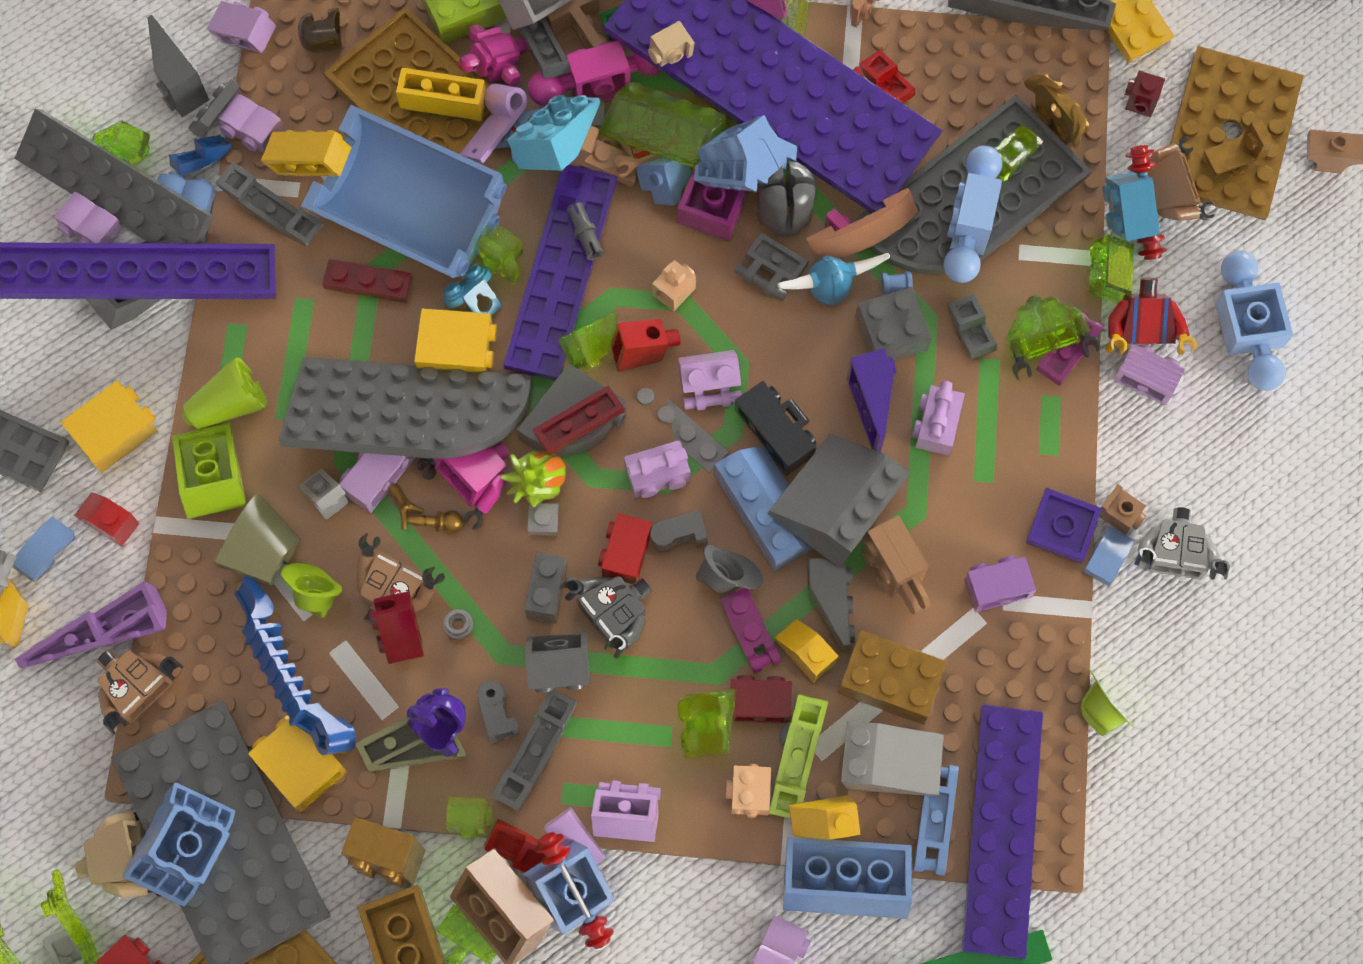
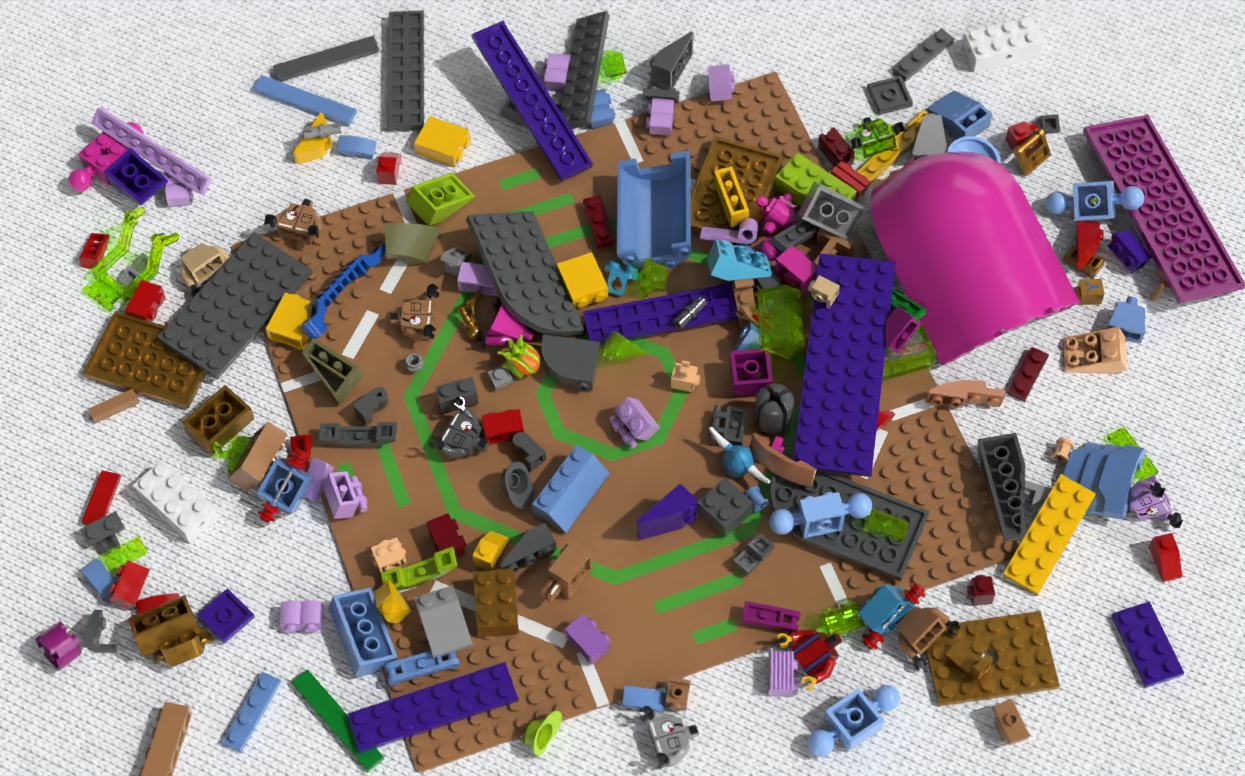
camera: 65 degrees right, 10 degrees down
(125, 618) = (334, 201): medium lavender wedge -> none
(180, 844) = (219, 282): medium blue slope -> none
(206, 152) = (634, 106): blue slope -> none
(225, 397) = (487, 185): lime cone -> none
(268, 206) = (616, 147): dark grey slope -> none
(306, 153) = (655, 149): yellow brick -> none
(311, 587) = (397, 278): lime piece -> none
(320, 34) = (736, 122): dark brown helmet -> none
(383, 851) = (260, 382): pearl gold brick -> none
(398, 627) = (392, 330): dark red brick -> none
(437, 720) = (344, 367): dark purple helmet -> none
(468, 816) = (303, 417): clear neon green brick -> none
(557, 662) = (412, 417): dark grey brick -> none
(578, 420) = (563, 360): dark red plate -> none
(641, 343) = (635, 375): red torso -> none
(657, 469) = (560, 420): lavender brick -> none
(692, 437) = (597, 431): light grey plate -> none
(707, 722) = (419, 513): clear neon green slope -> none
(743, 156) = (777, 366): medium blue slope -> none
(749, 629) = (488, 515): magenta plate -> none
(772, 427) = (619, 474): black piece -> none
(838, 496) = (593, 521): dark grey slope -> none
(884, 74) = (897, 435): red slope -> none
(939, 420) = (677, 560): lavender brick -> none
(1045, 327) = (770, 592): clear neon green torso -> none
(1057, 109) = (931, 541): pearl gold piece -> none
(1063, 525) = (646, 661): dark purple plate -> none

